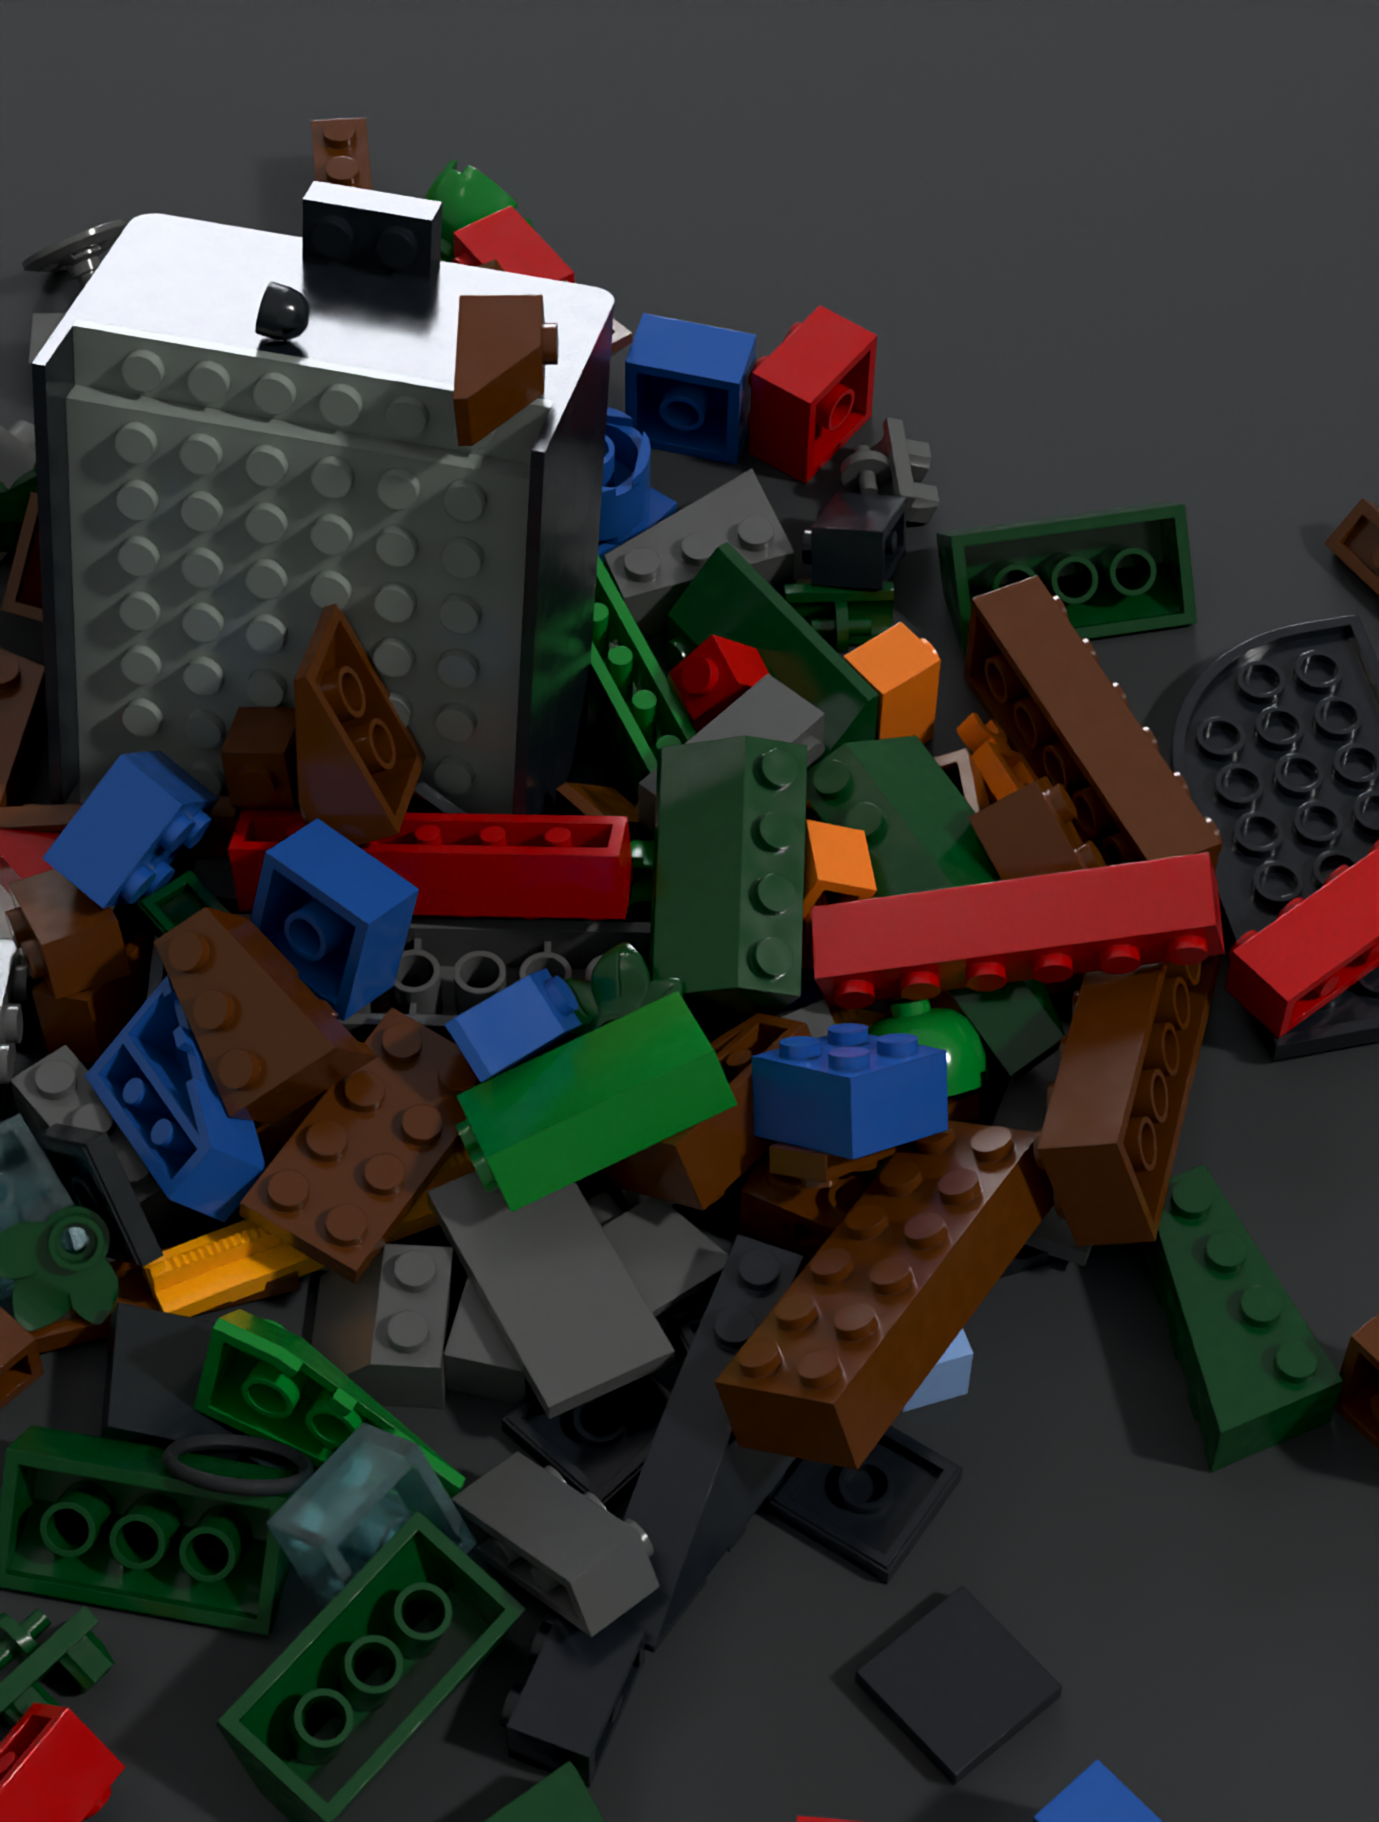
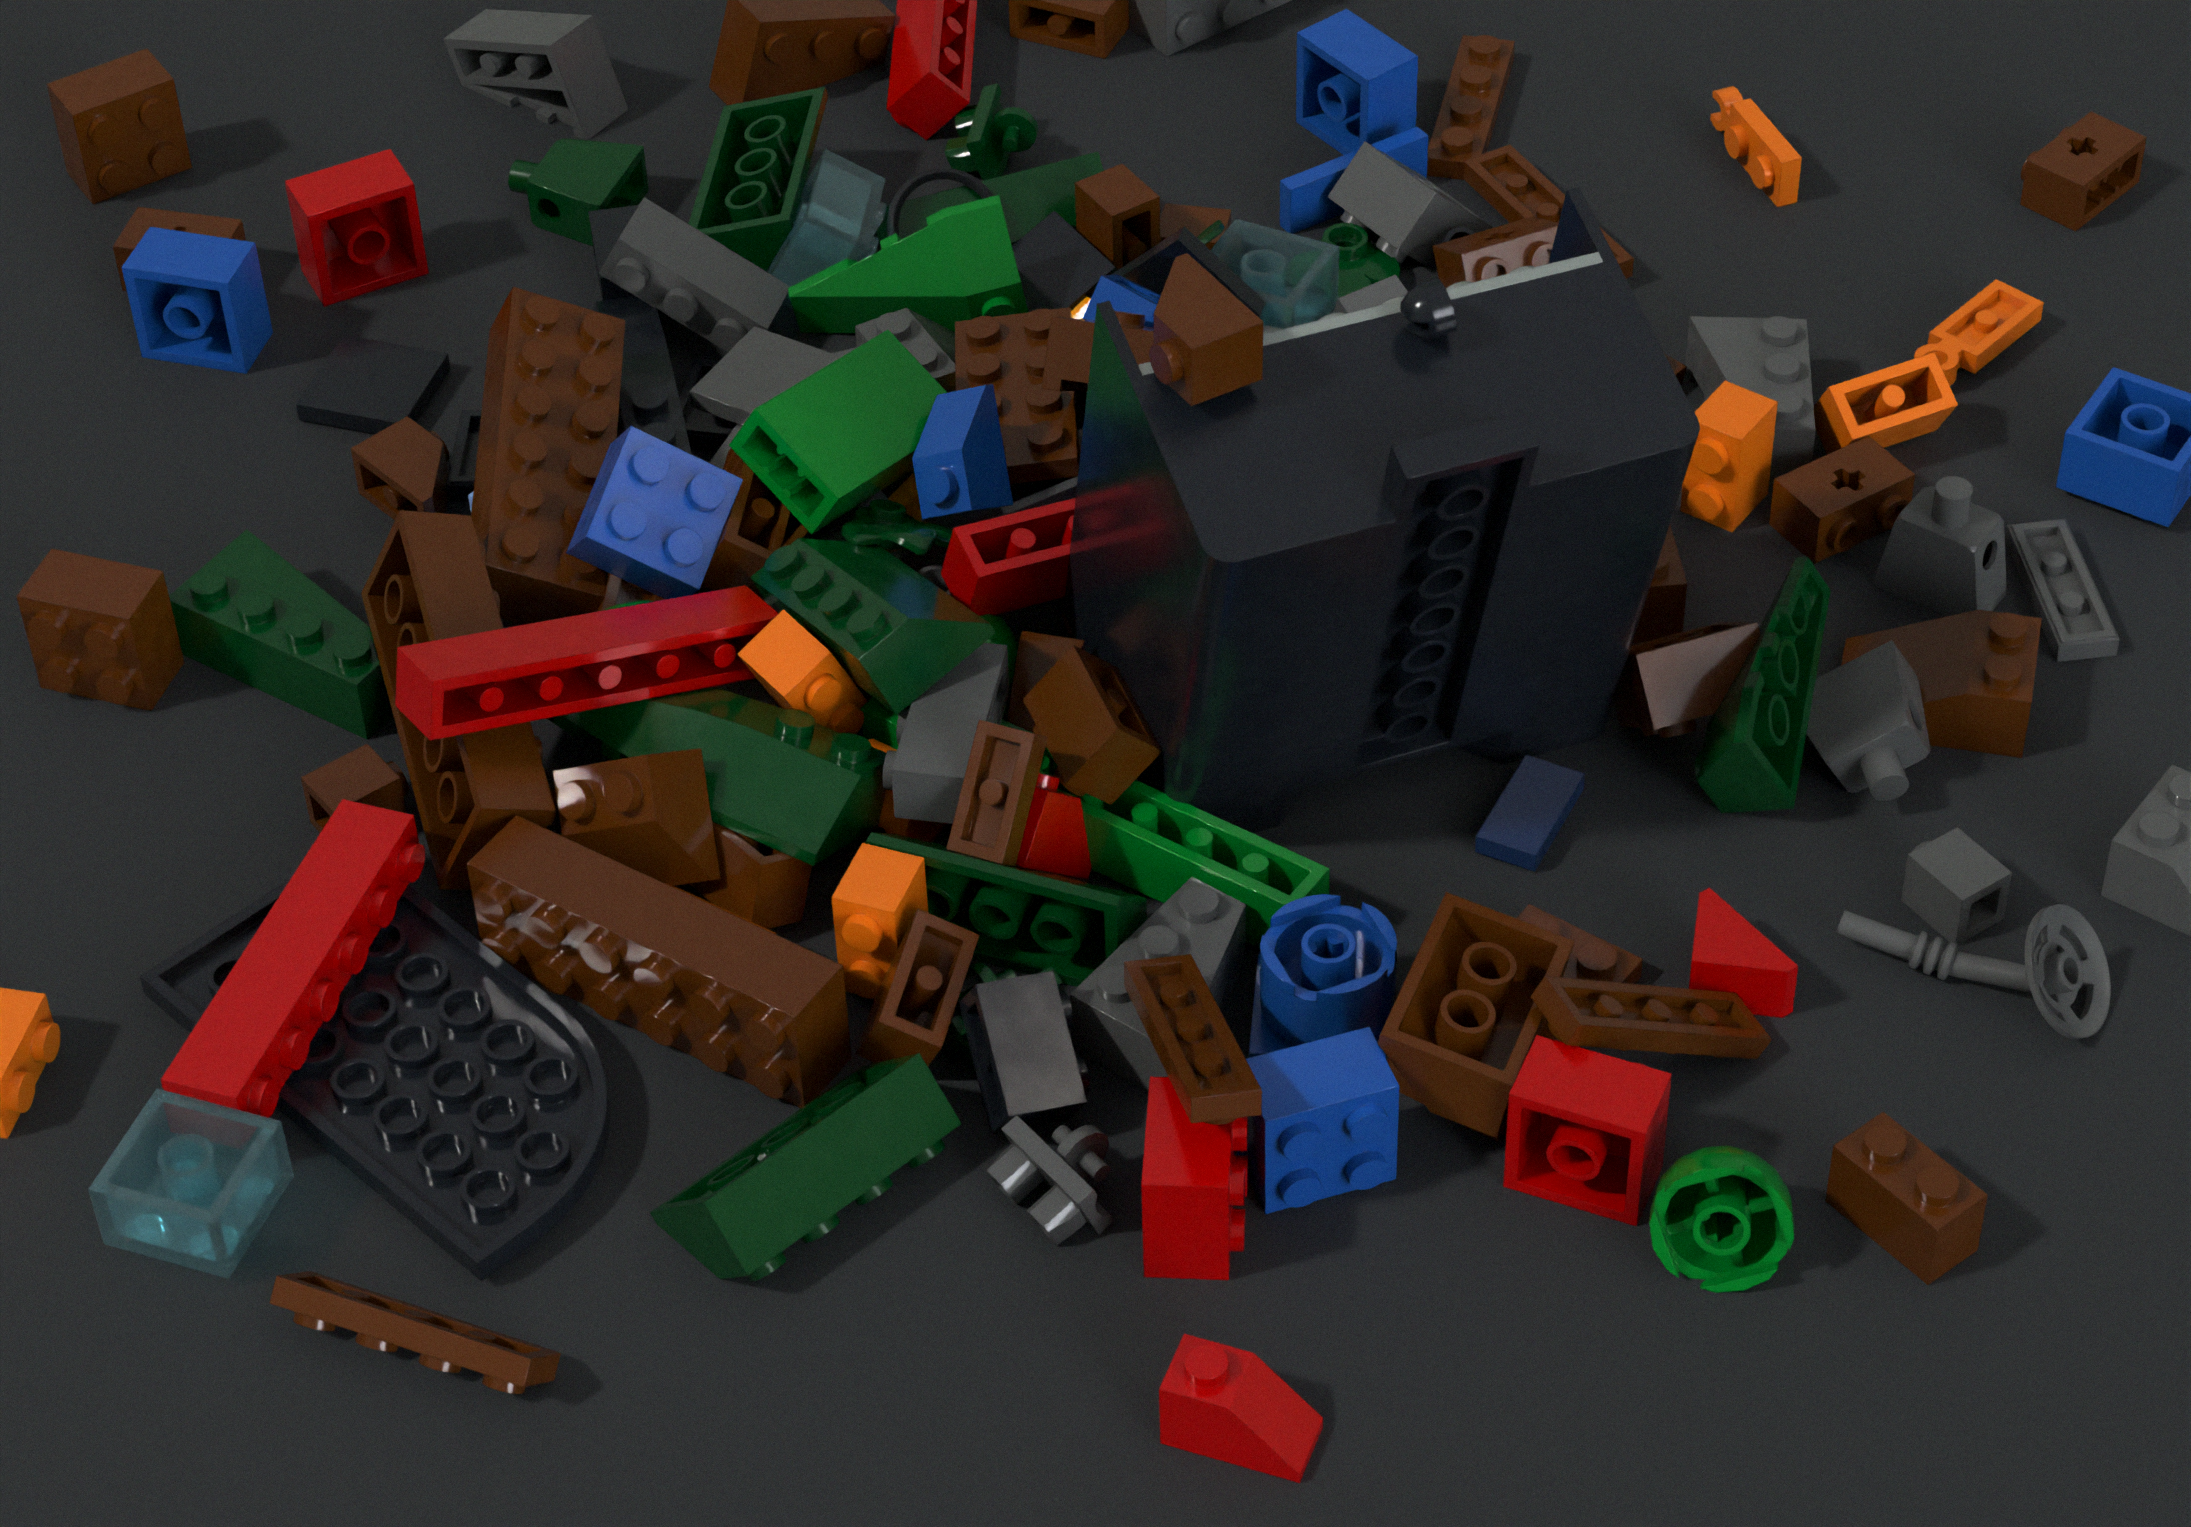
camera: 150 degrees right, 10 degrees down
(66, 1359) = (1117, 214): none -> reddish brown brick
(623, 690) = (1091, 726): none -> reddish brown brick
(752, 649) = (997, 793): none -> reddish brown plate
(763, 399) = (1192, 1039): none -> reddish brown plate
(898, 279) = (1235, 1410): none -> red slope
(922, 601) = (919, 991): none -> reddish brown slope
(998, 1487) = (403, 469): none -> reddish brown slope
(1248, 1096) = (354, 777): none -> reddish brown brick

